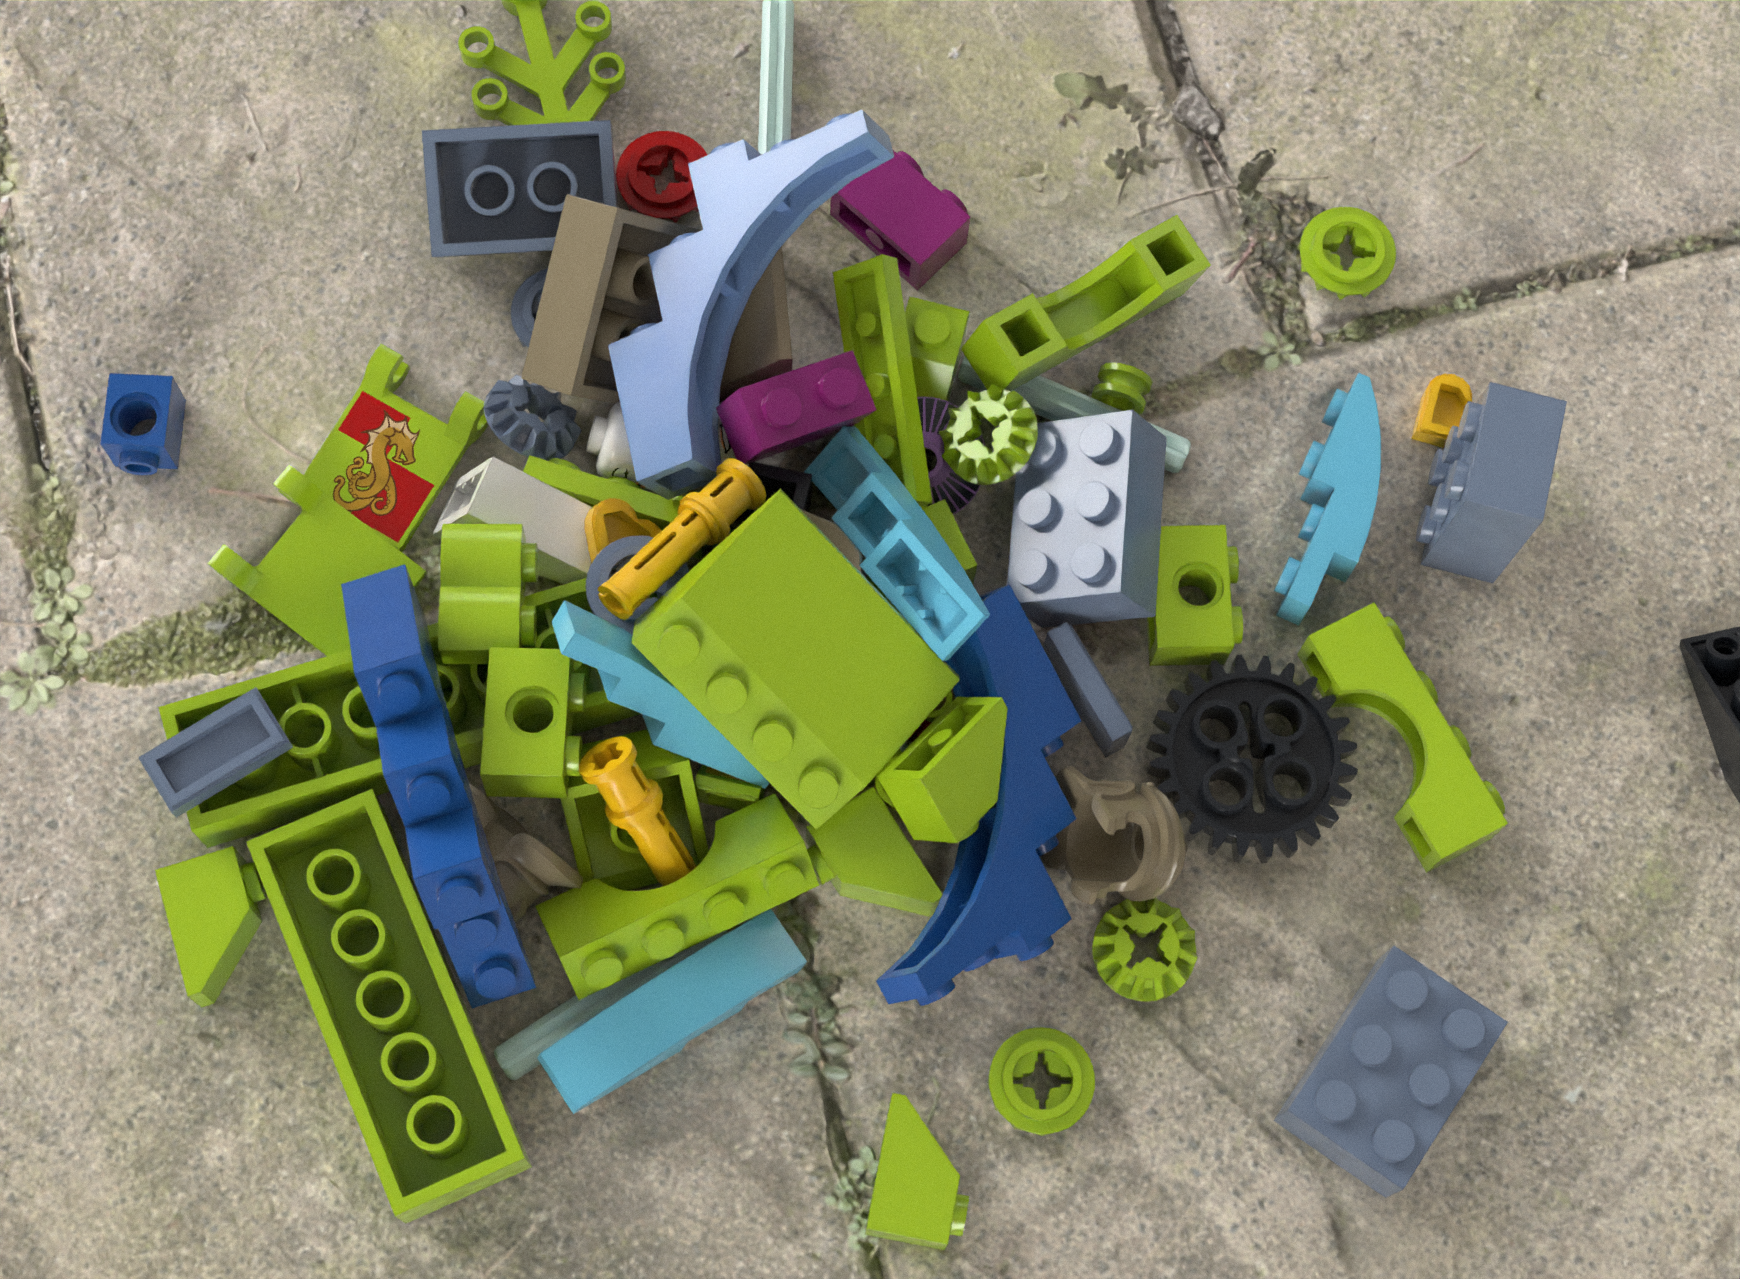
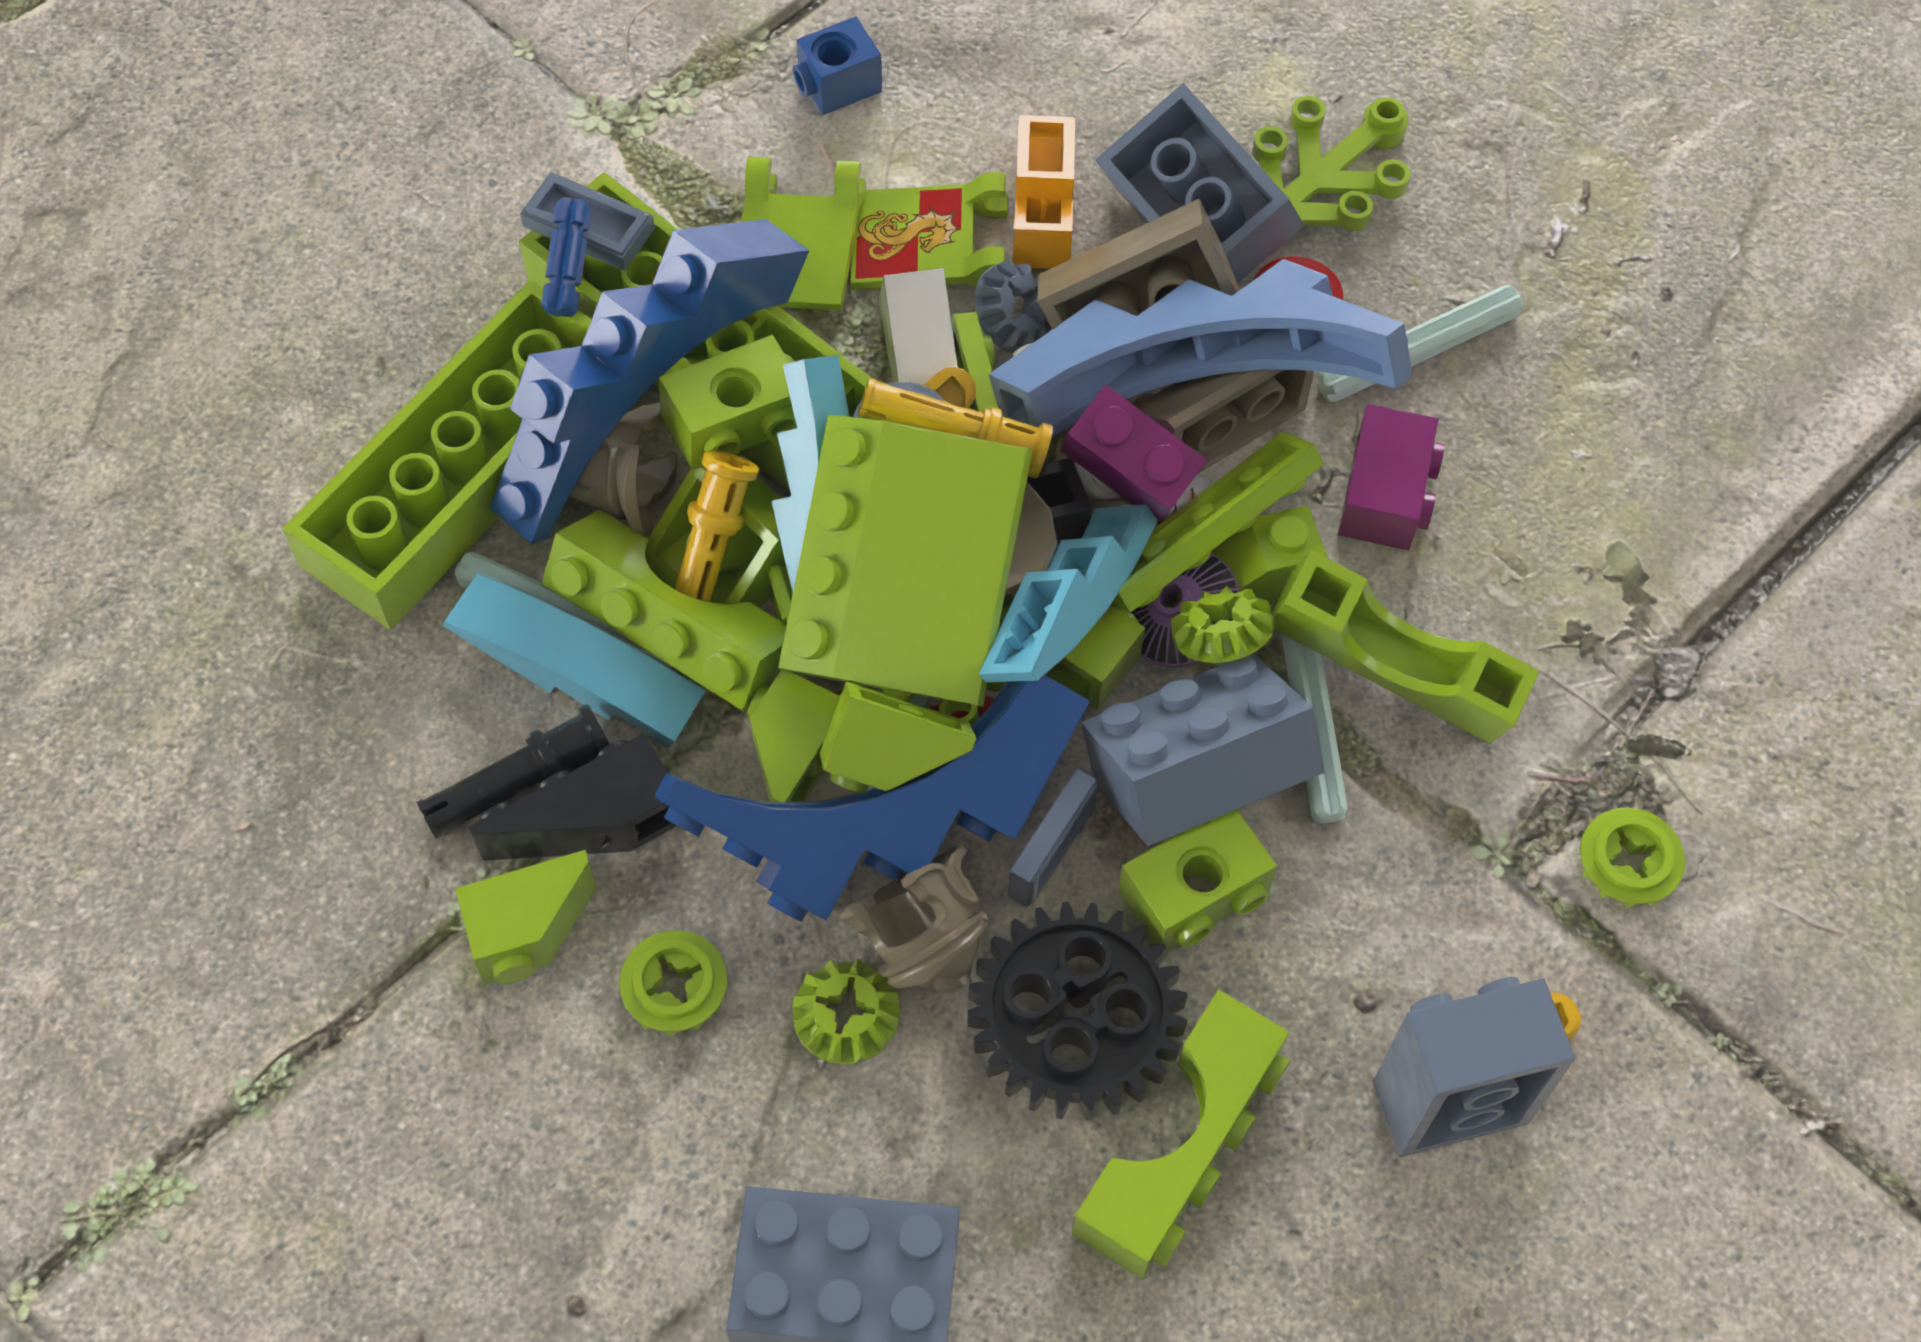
camera: 65 degrees right, 10 degrees down
(211, 917) = (456, 303): lime slope -> none
(260, 792) = (566, 257): none -> blue axle
(413, 320) = (1044, 191): none -> light orange slope
(484, 591) = (827, 314): lime brick -> none
(760, 1085) = (544, 755): none -> black pin
(843, 1053) = (592, 809): none -> black slope
(1122, 387) = (1356, 729): lime bush -> none
(1342, 497) = (1398, 961): medium azure slope -> none

